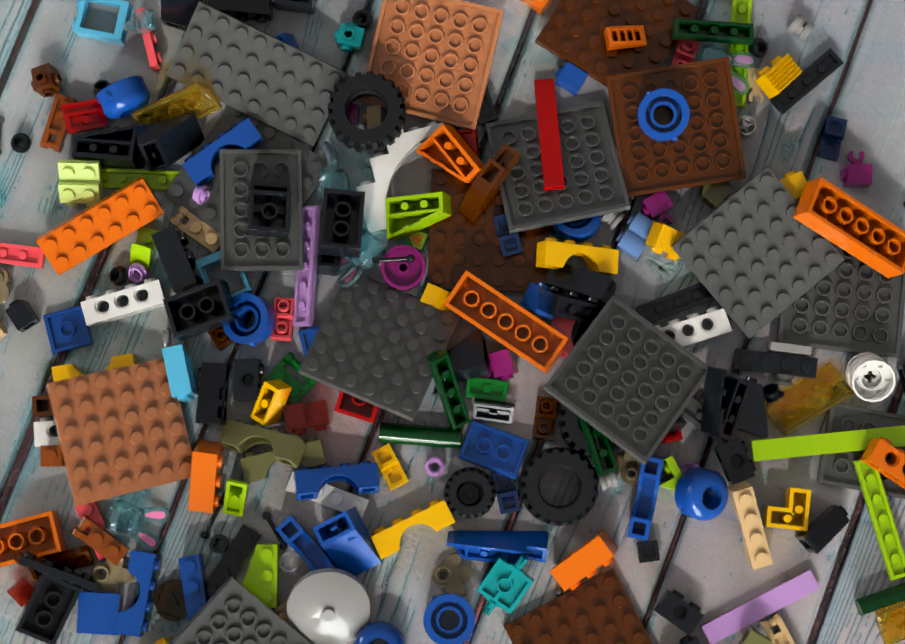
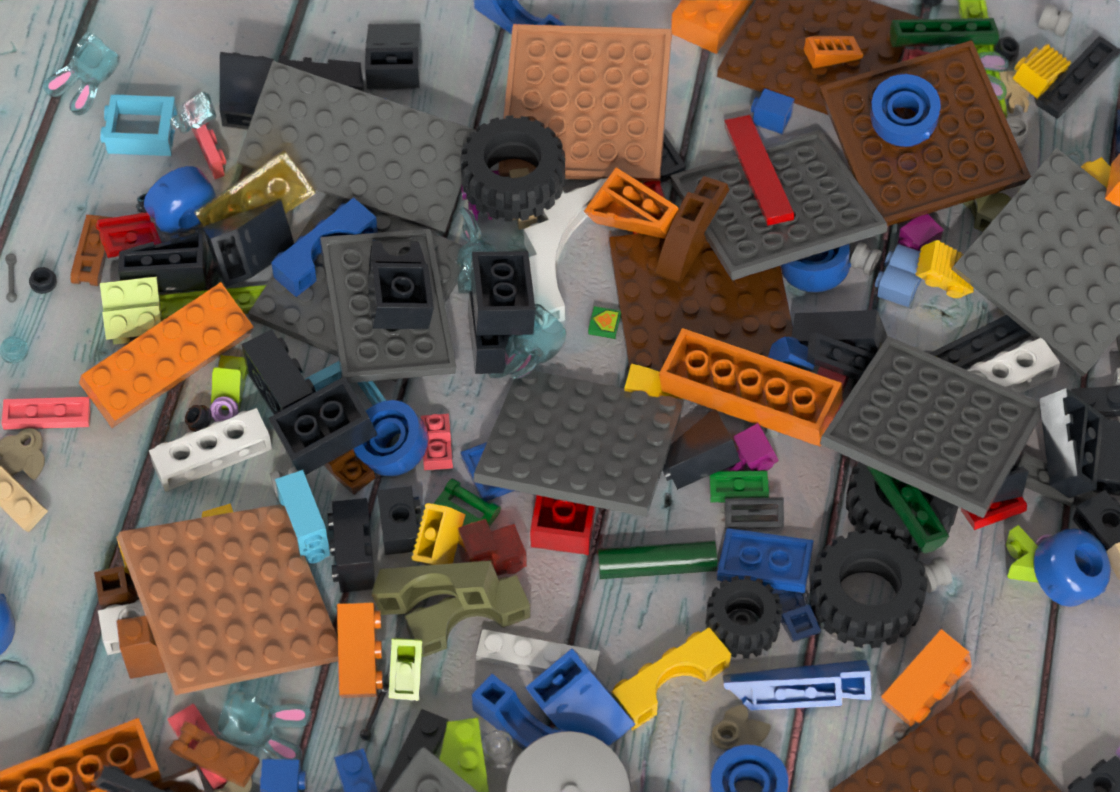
camera: 10 degrees left, 25 degrees down
(22, 315) = (66, 484): black brick -> none
(46, 80) = (71, 200): reddish brown brick -> none
(67, 330) = (133, 497): blue tile -> none
(197, 230) = (309, 353): tan plate -> none
(201, 194) = (301, 299): lavender plate -> none
(224, 547) = (380, 741): black bush -> none
(267, 516) = (453, 697): black hinge -> none
(306, 279) = (461, 386): lavender tile -> none
(350, 37) = (473, 102): teal brick -> none
(361, 477) = (582, 618): blue arch -> none
(363, 13) = (485, 78): black plate -> none
(376, 260) = (556, 336): black hinge -> none
(390, 467) = (621, 606): yellow slope -> none
(403, 279) = (593, 349): magenta wheel -> none
(415, 212) = (599, 280): lime wedge -> none
(430, 461) = (688, 588): lavender plate -> none
(448, 389) = (687, 481): dark green brick -> none
(505, 585) = (820, 731): teal plate -> none
(508, 242) = (727, 293): dark blue slope -> none
(544, 418) = (827, 512): reddish brown slope -> none
(599, 259) = (796, 296): yellow arch -> none
(626, 464) = (965, 555): dark tan plate -> none
(646, 498) = (995, 581): blue arch -> none
(647, 551) = (1015, 660): black plate -> none
(666, 608) = (1063, 736): black brick -> none

